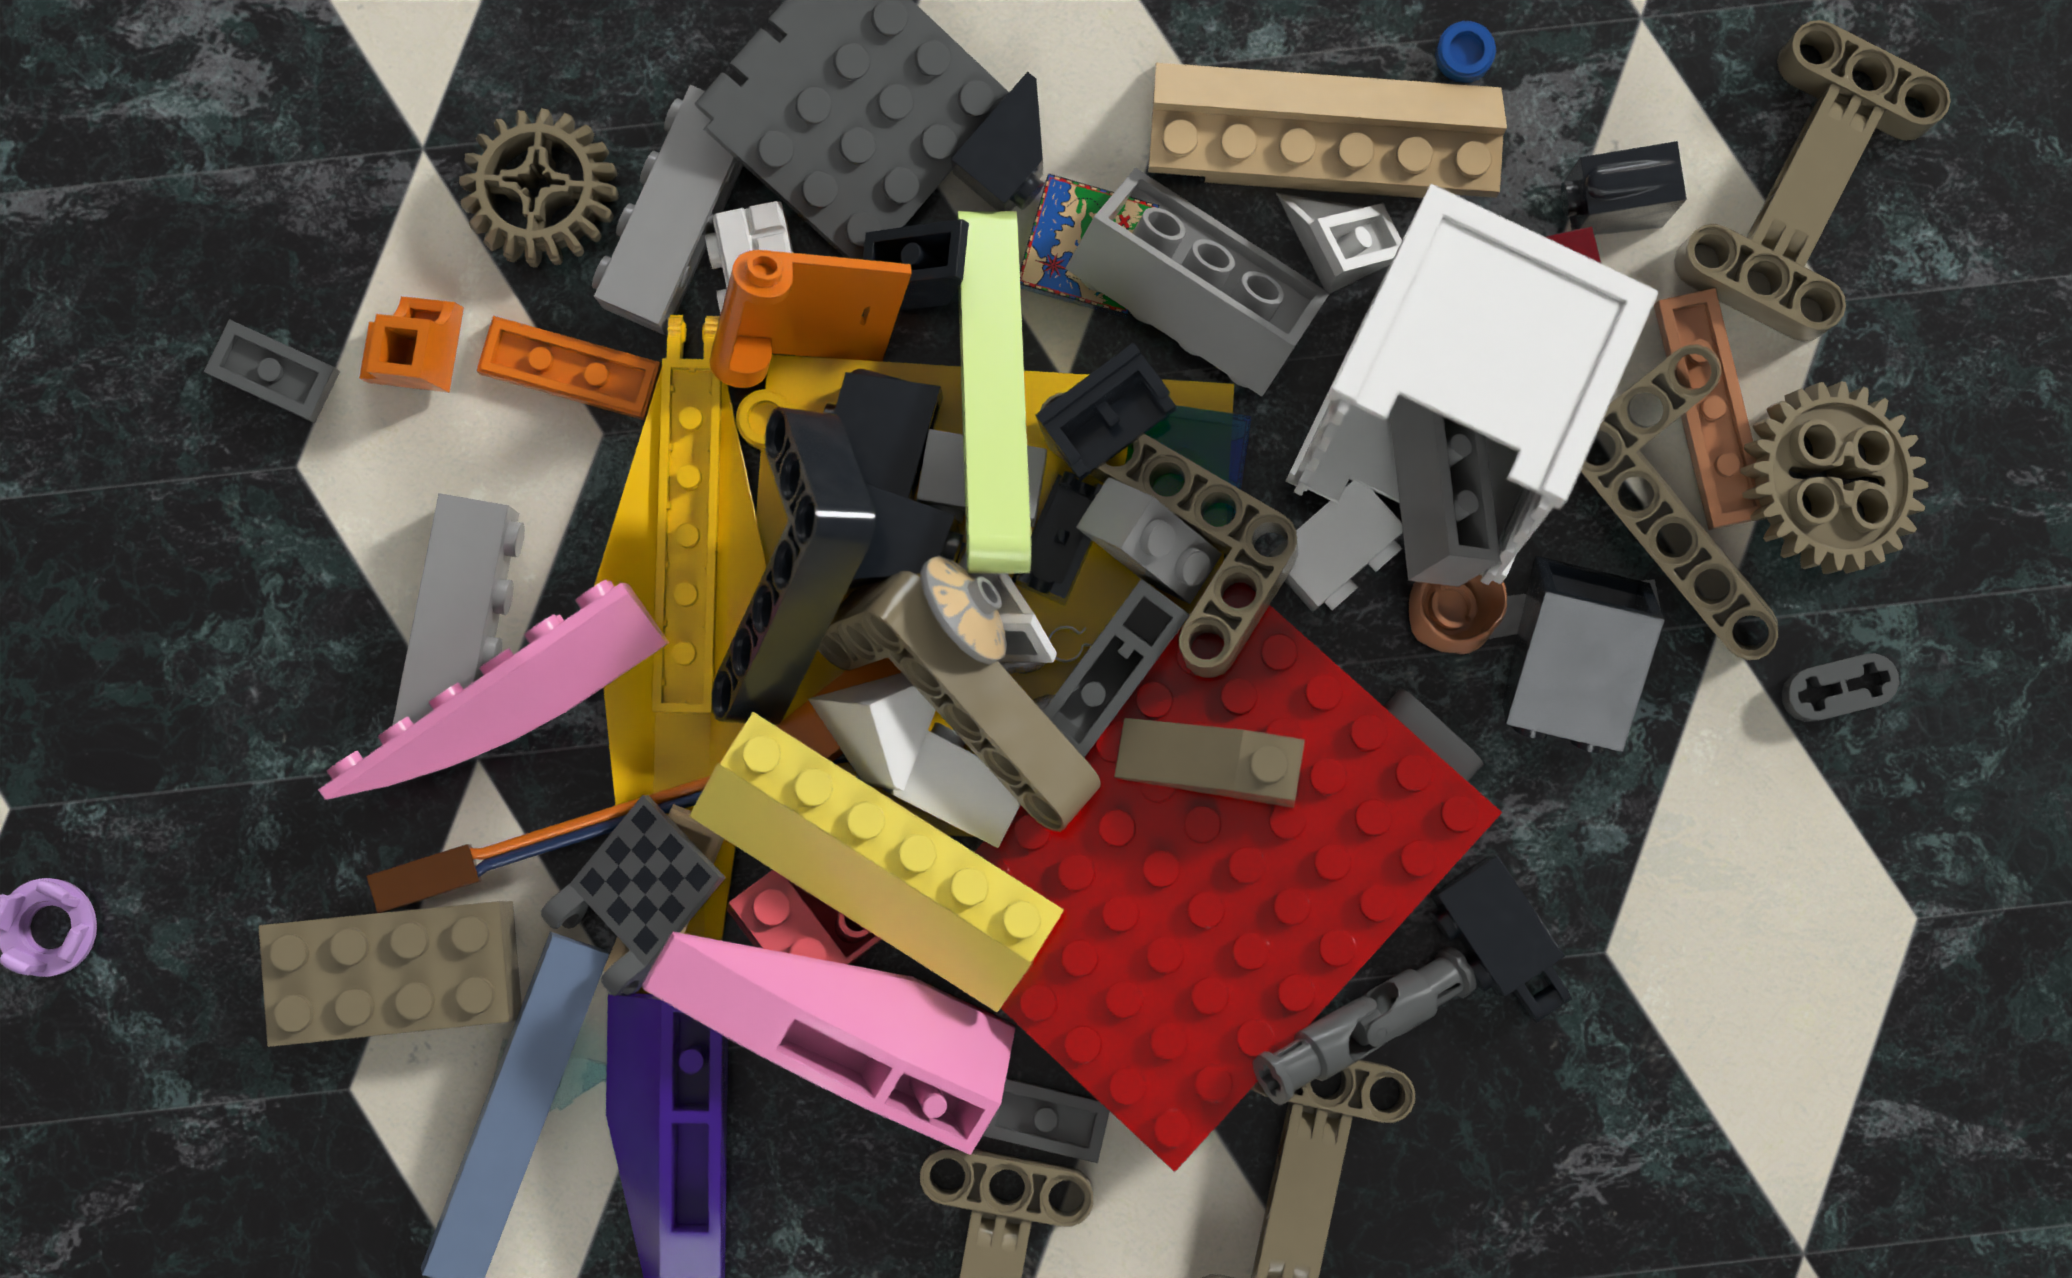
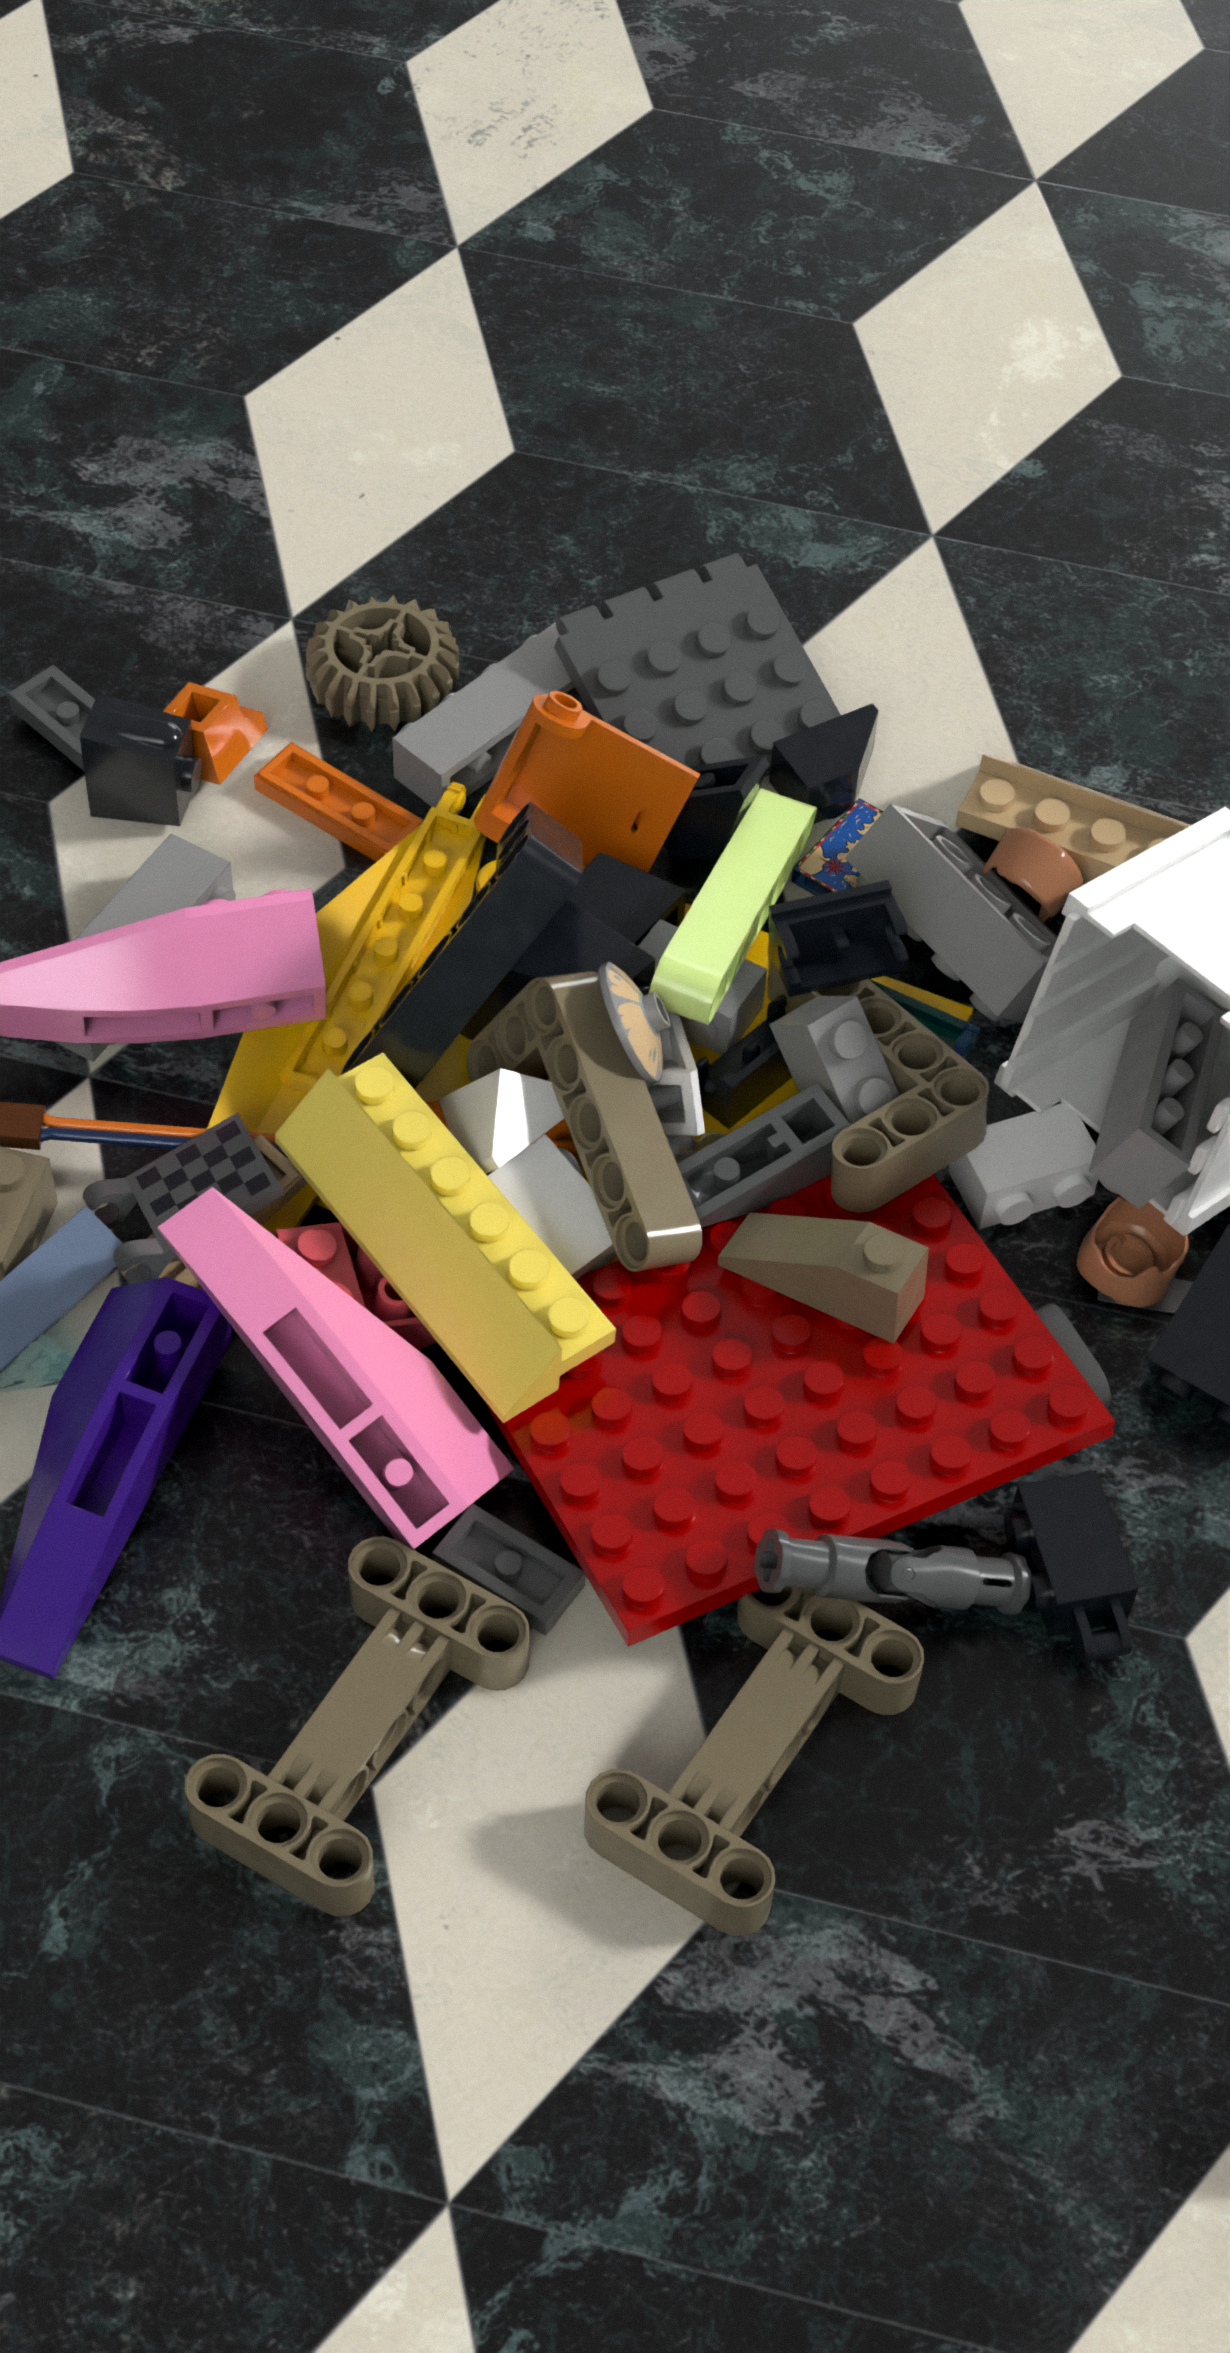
camera: 15 degrees right, 30 degrees down
(371, 422) = (138, 762): none -> black torso
(1241, 213) = (1037, 867): none -> nougat hair

